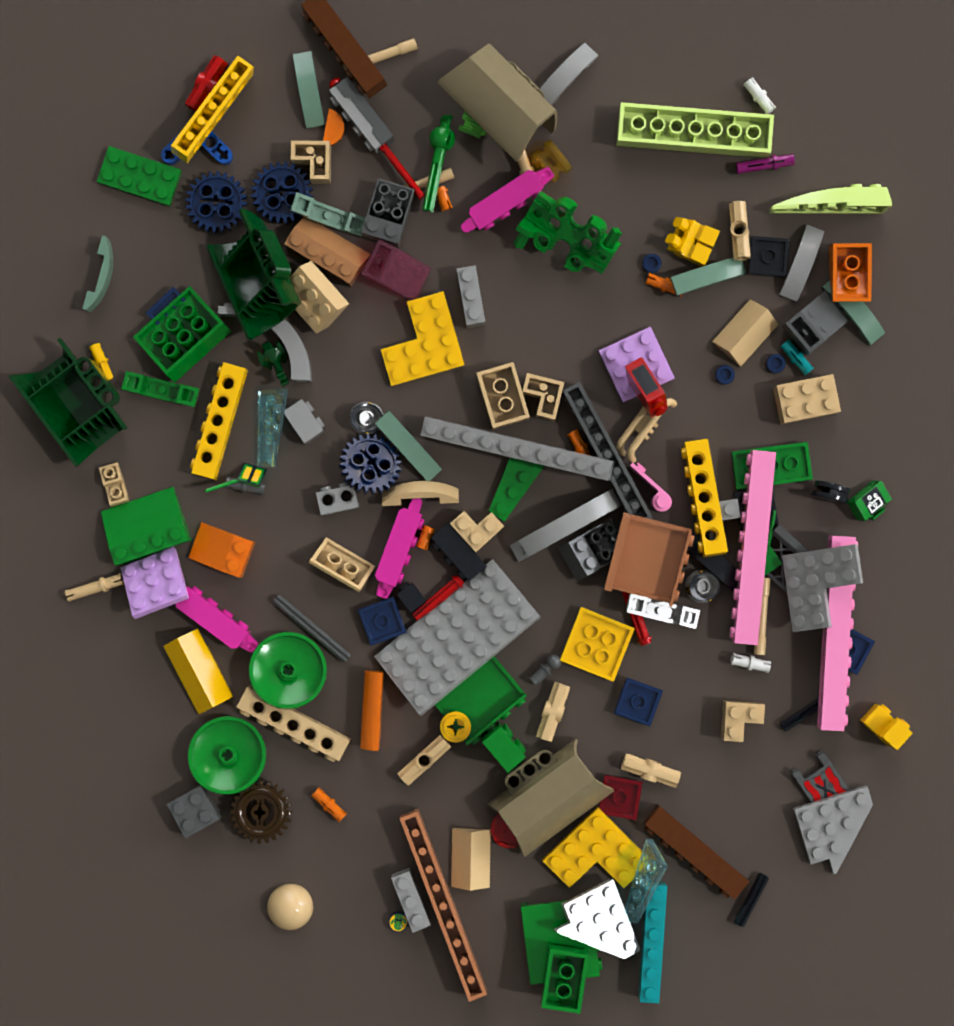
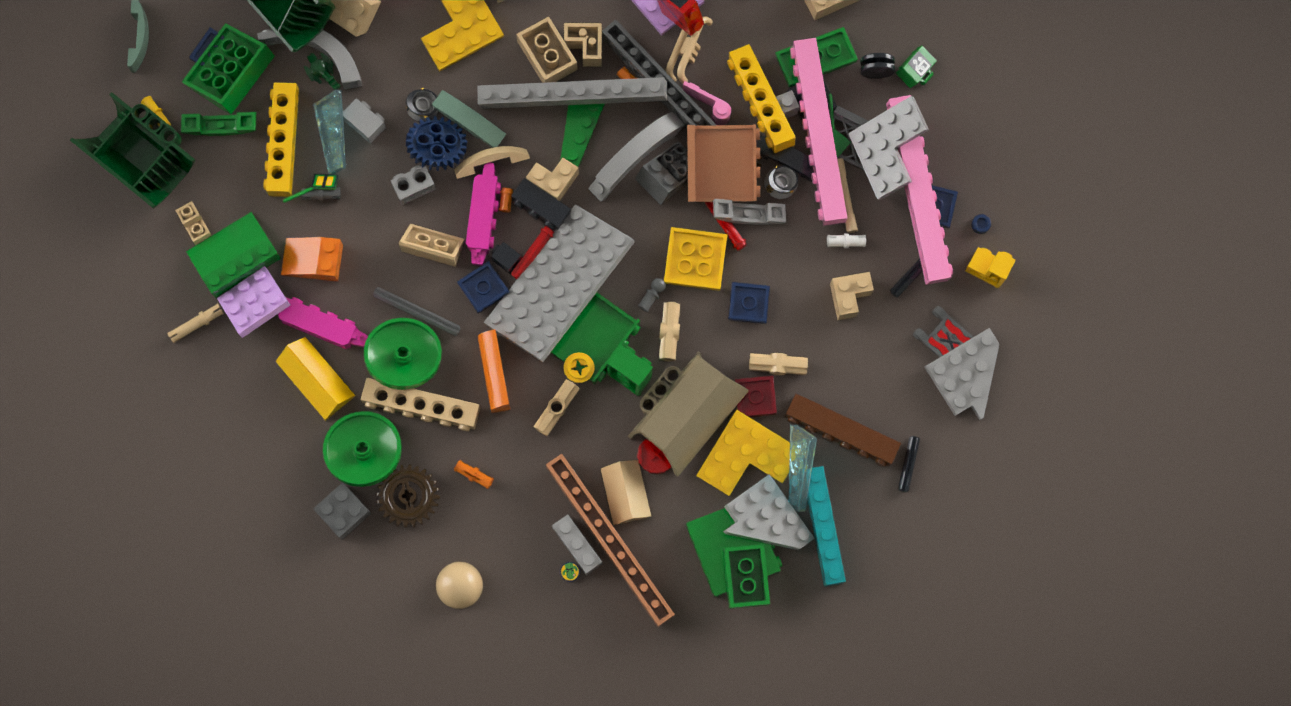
camera: 15 degrees left, 10 degrees down
(889, 677) = (981, 224): none -> dark blue tile

